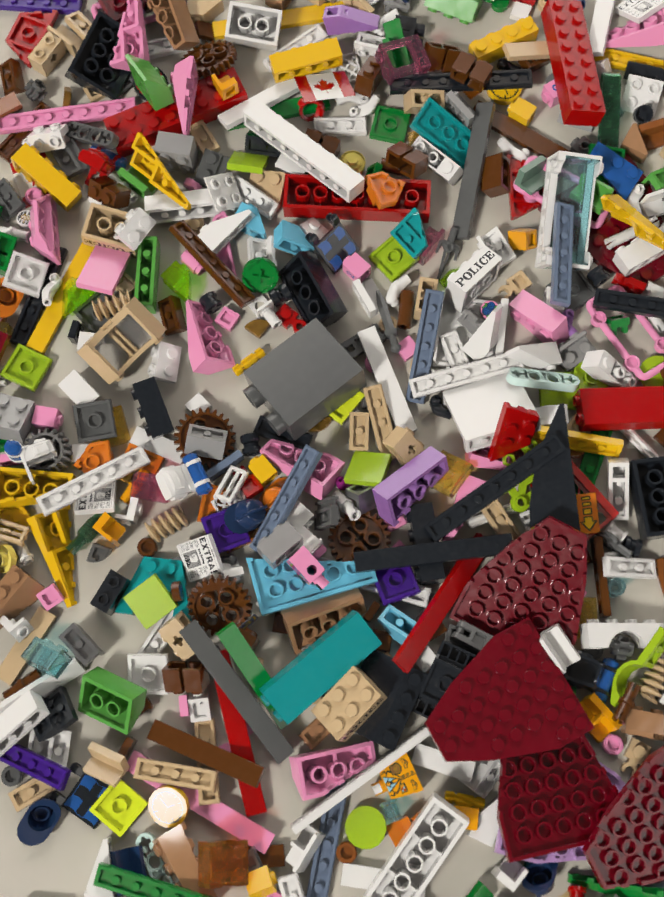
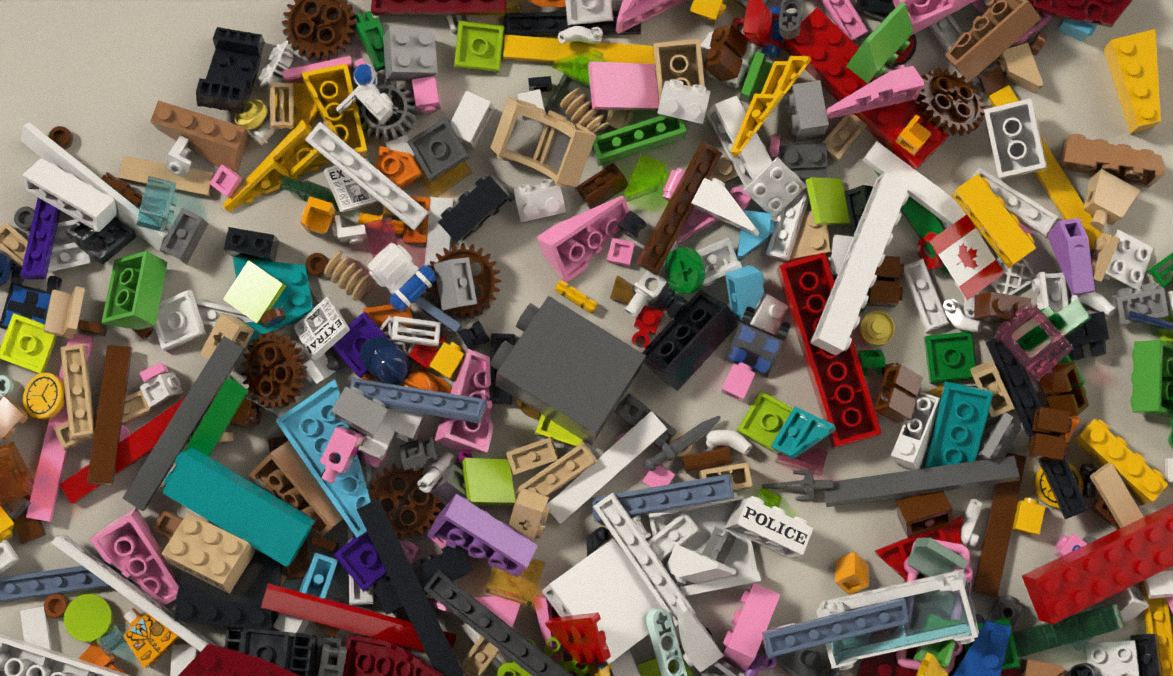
camera: 70 degrees right, 5 degrees up
(98, 553) = (292, 212): dark grey tile -> none
(180, 678) = (179, 356): reddish brown piece -> none
(197, 402) = (504, 257): white tile -> none
(304, 848) = (44, 558): white panel -> none
(367, 296) = (712, 404): white panel -> none
(383, 189) = (844, 379): orange plate -> none
(487, 307) = (741, 561): tile -> none
(497, 242) = (827, 544): white bracket -> none
(515, 284) = (788, 586): tan plate -> none

